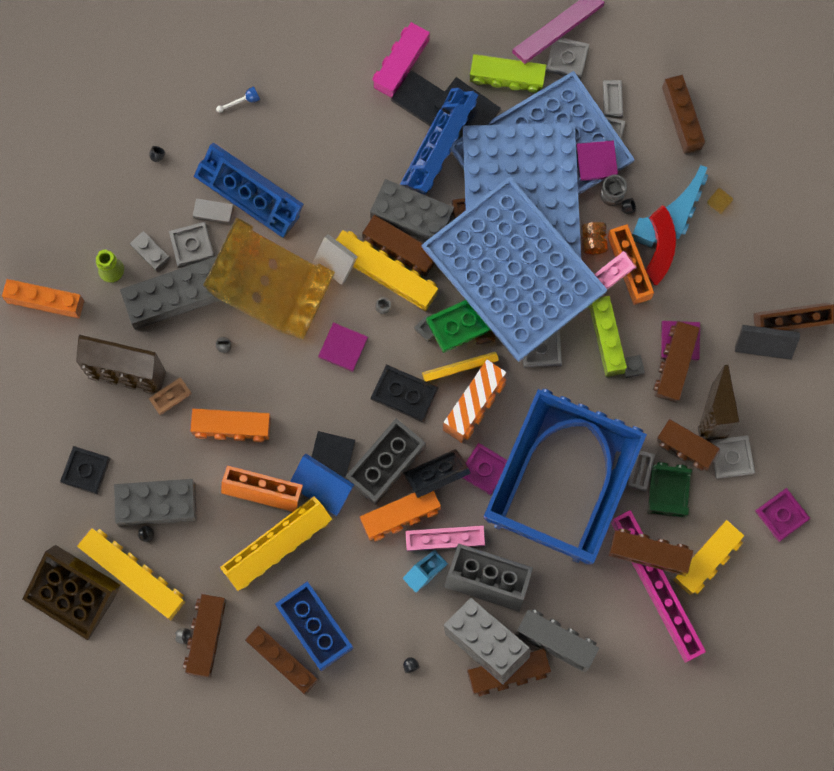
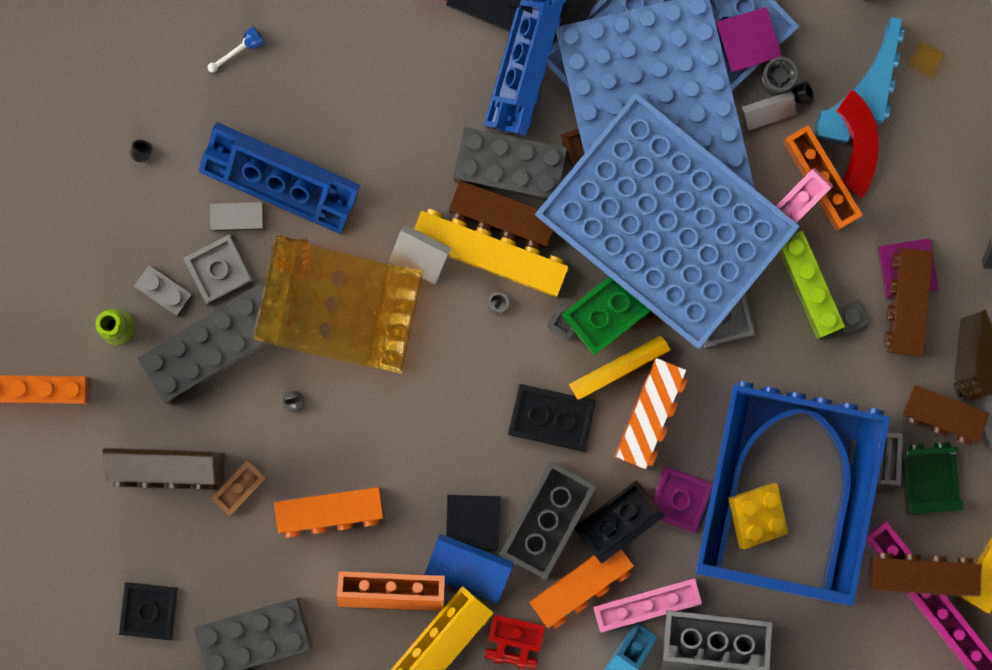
camera: 10 degrees left, 10 degrees up
(343, 347) = (455, 371): magenta tile -> none
(345, 539) = (518, 634): none -> red plate
(538, 489) = (758, 515): none -> yellow plate
(594, 238) = (766, 150): clear orange wheel -> none
(602, 212) = (769, 110): none -> light grey tile

